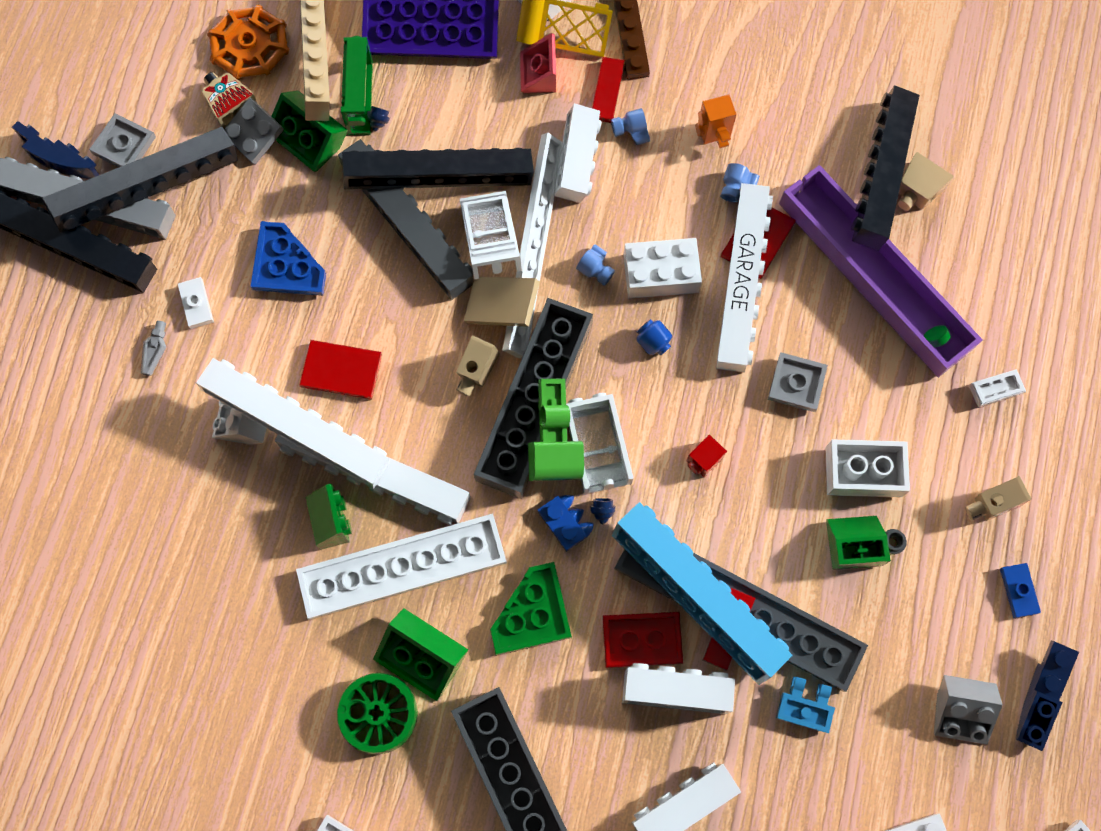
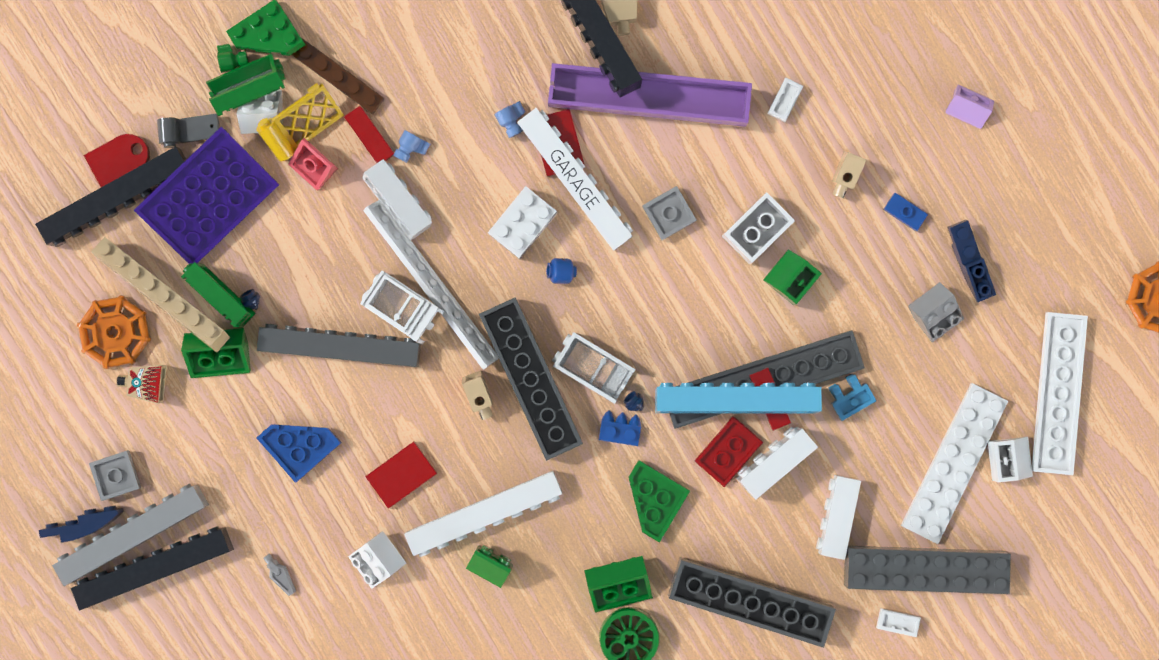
camera: 45 degrees left, 15 degrees up
(140, 179) = (160, 488): black brick -> none
(195, 303) = (272, 524): white plate -> none
(253, 130) = (185, 387): light grey plate -> none
(293, 423) = (416, 538): white brick -> none
(400, 566) = (557, 548): white plate -> none
(437, 168) = (326, 299): black brick -> none
(502, 301) = (452, 341): tan tile -> none
(554, 456) = (580, 403): bright green plate -> none
(592, 265) = (480, 262): medium blue piece -> none
(706, 456) = (661, 313): red brick -> none
(716, 120) = (461, 93): orange brick -> none
(900, 539) = (817, 252): dark grey plate -> none
(937, 335) = (722, 104): green tile -> none

